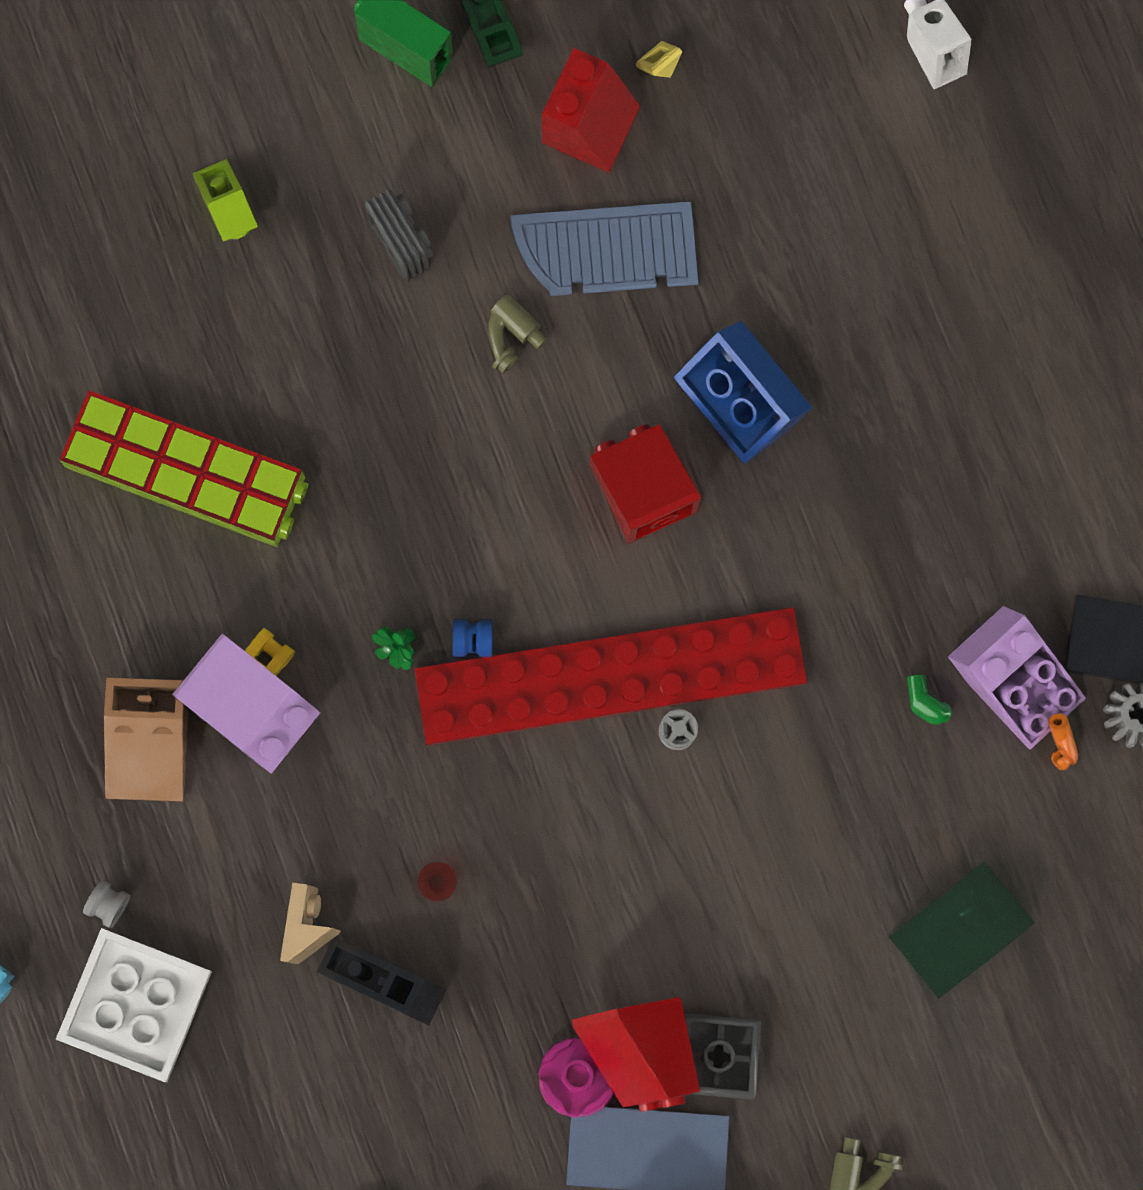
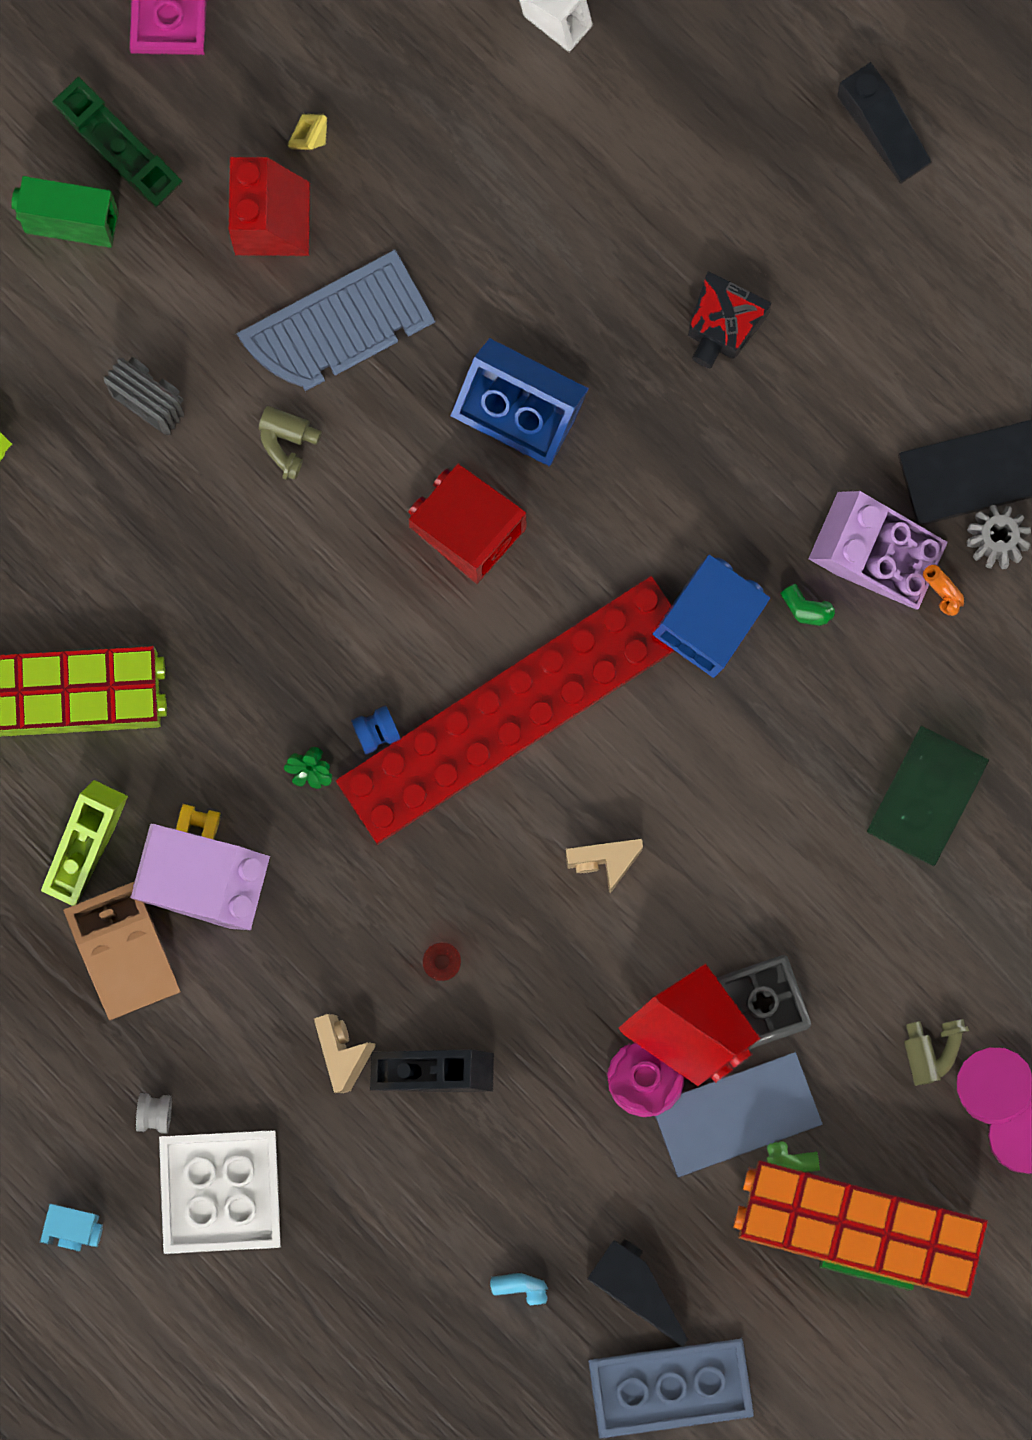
camera: 20 degrees left, 0 degrees up
(157, 622) = (84, 841): none -> lime slope
(643, 856) = (616, 857): none -> tan slope
(681, 724) = (598, 723): light grey wheel -> none
(833, 670) = (712, 615): none -> blue brick
(968, 398) = (724, 319): none -> torso

